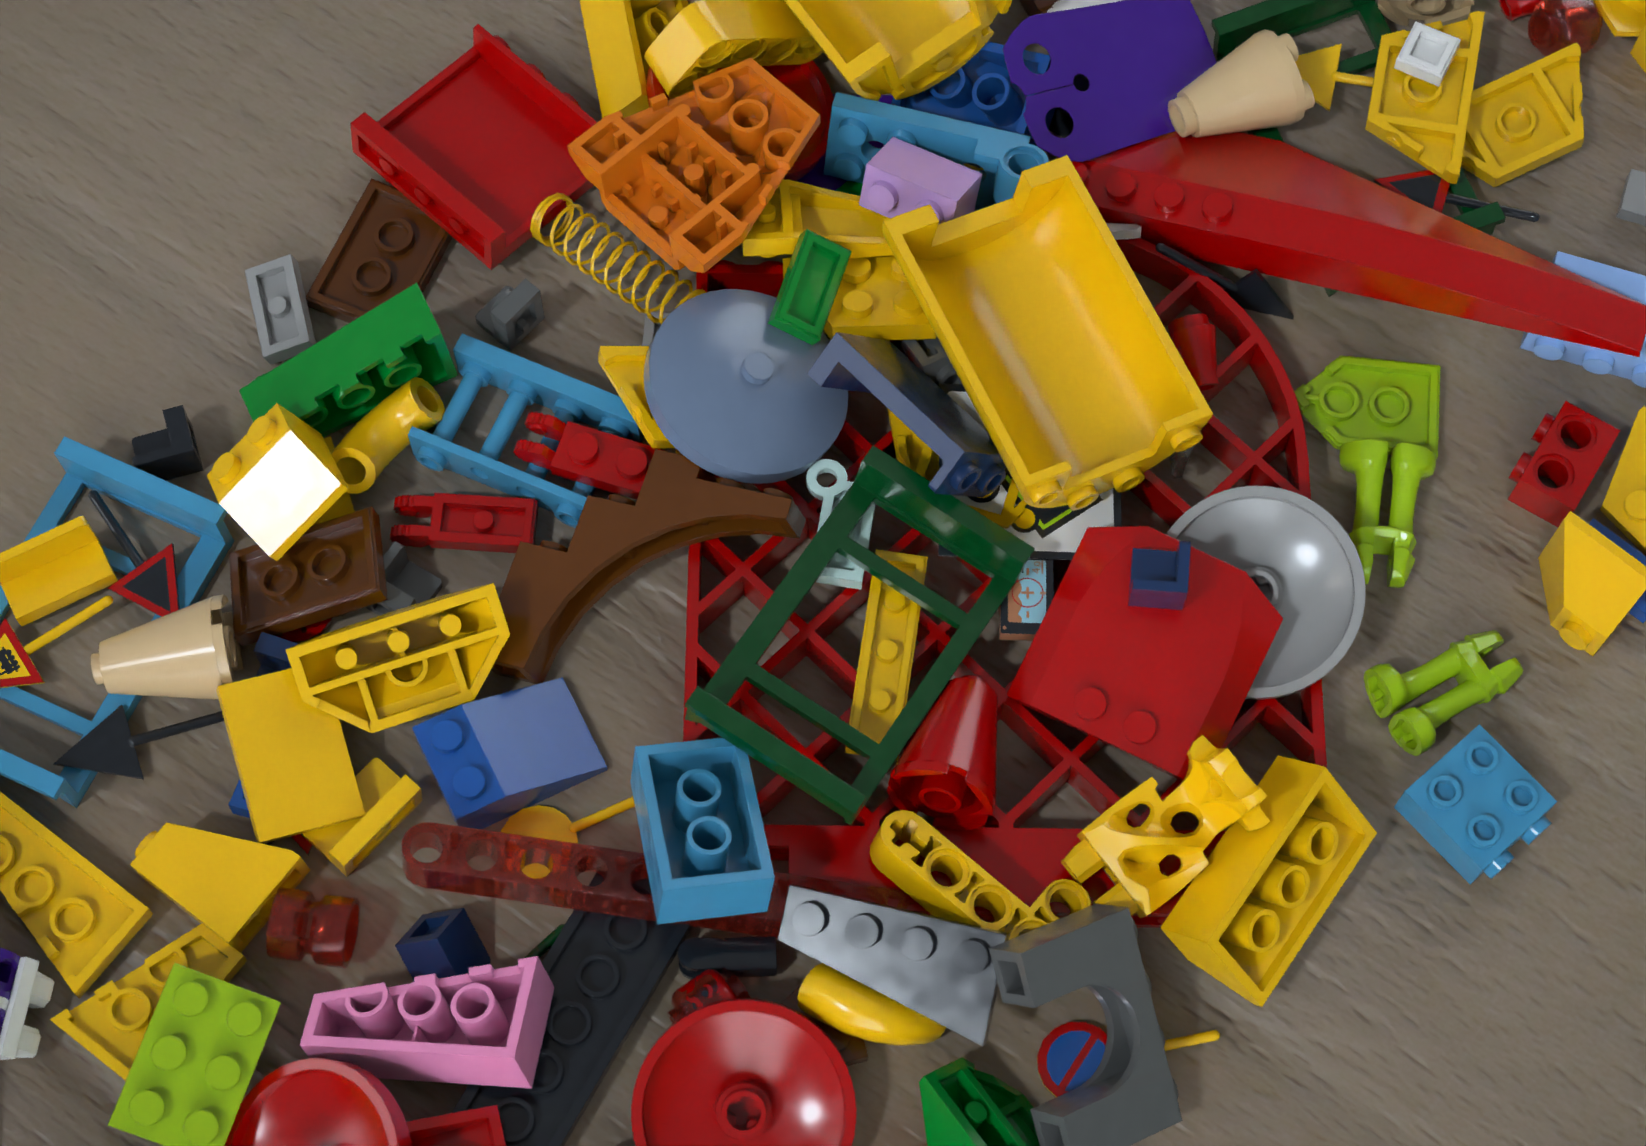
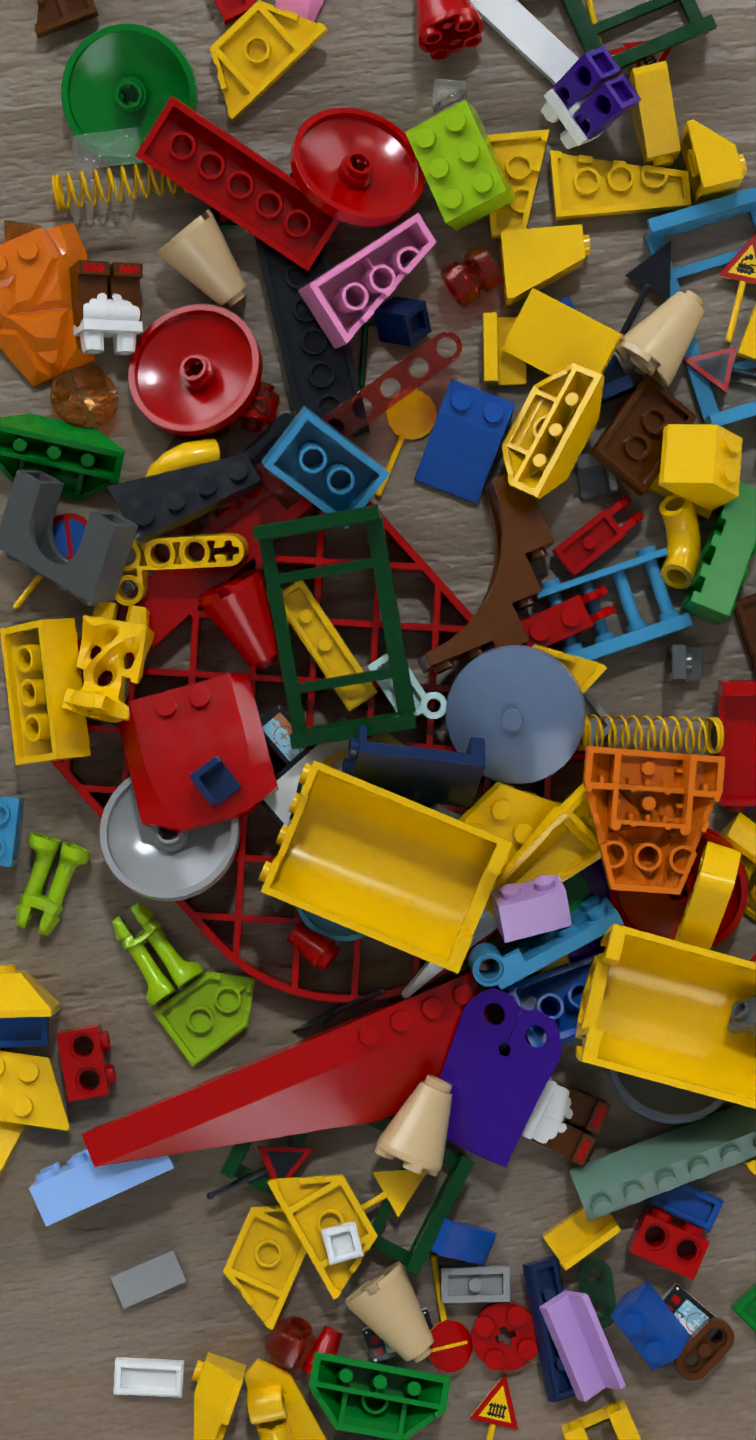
camera: 140 degrees right, 20 degrees up
(809, 287) = (530, 792): green tile -> none

